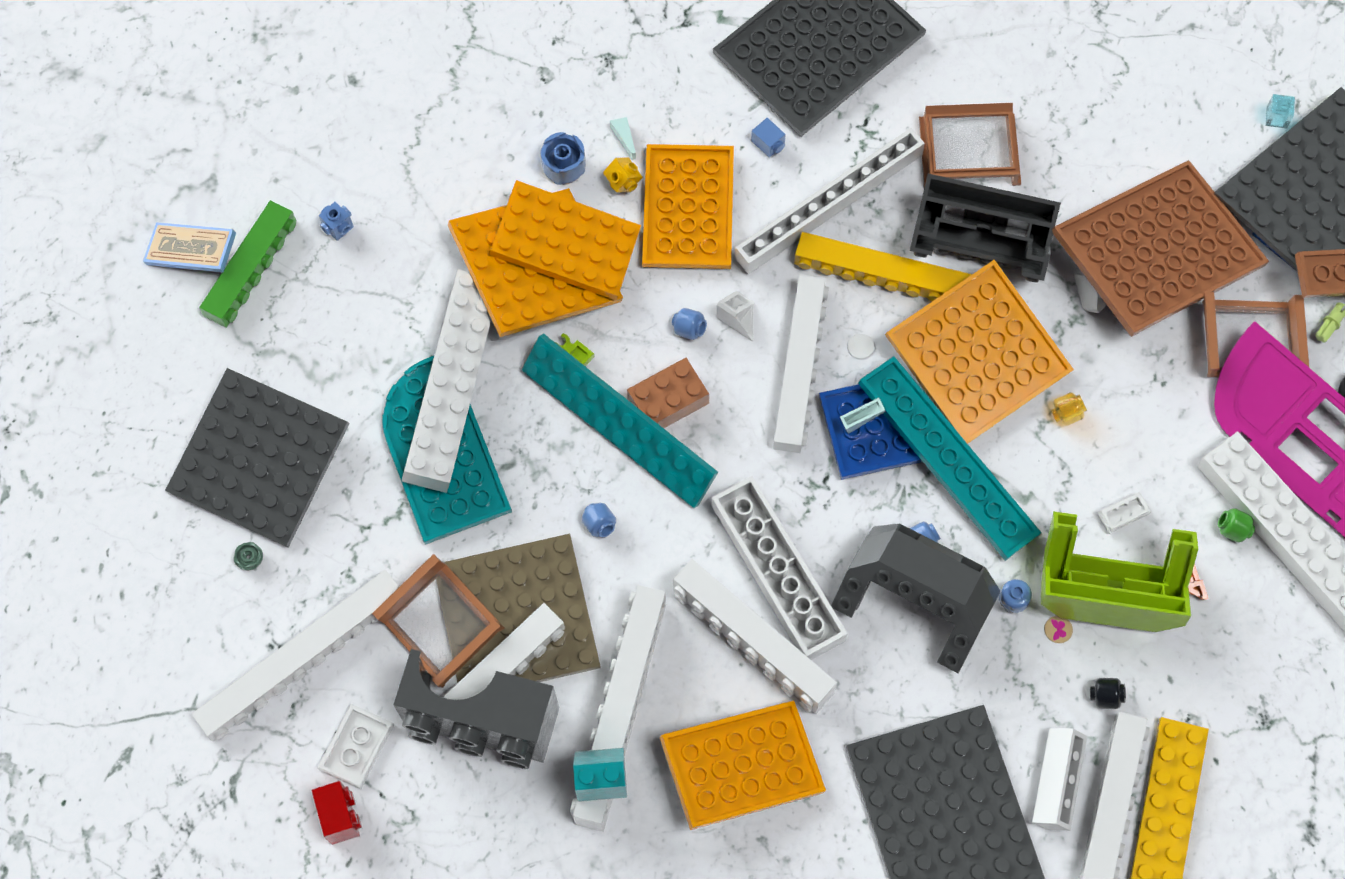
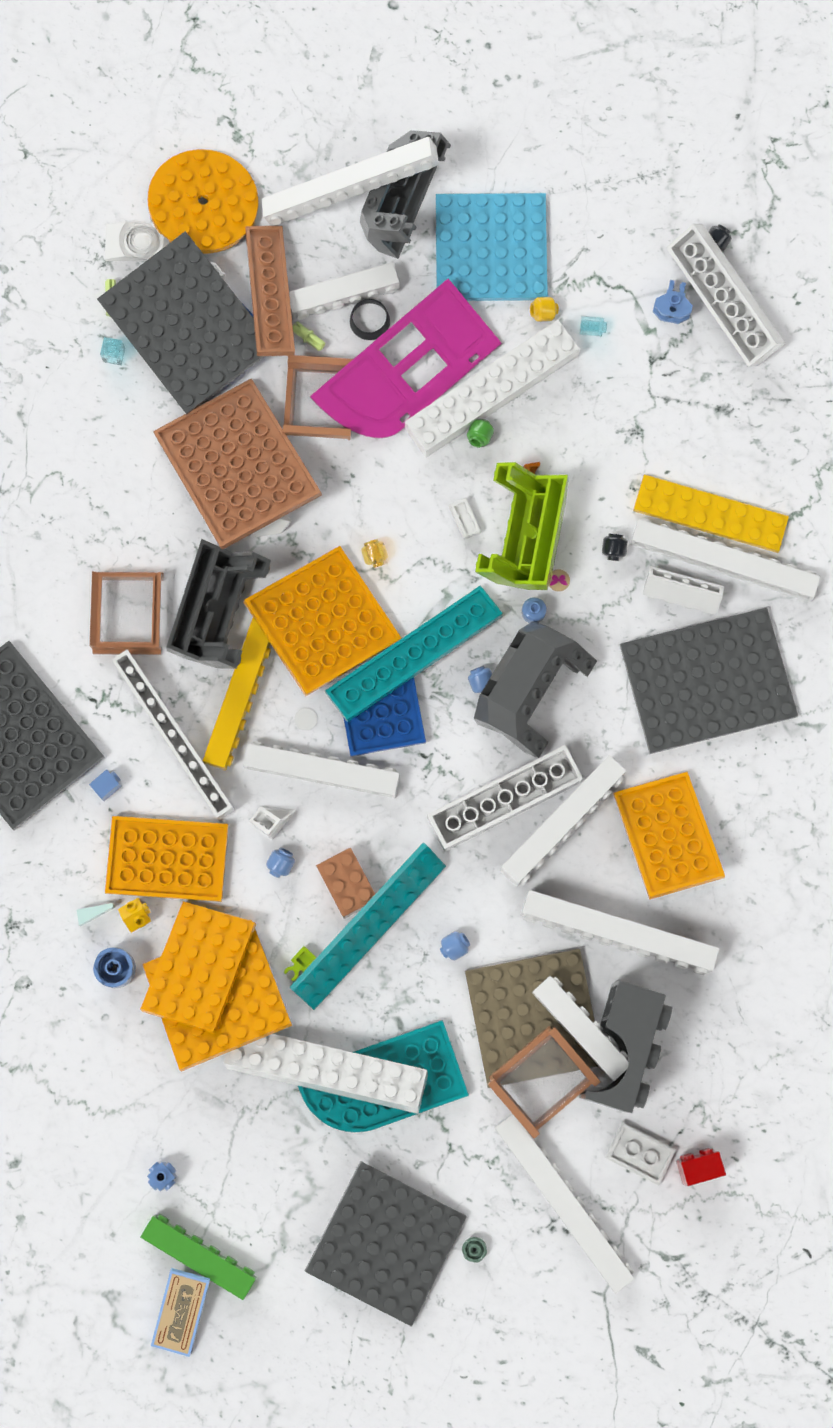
camera: 90 degrees left, 10 degrees up
(600, 774) = (684, 946): teal slope -> none
(862, 415) = (377, 719): light aqua piece -> none

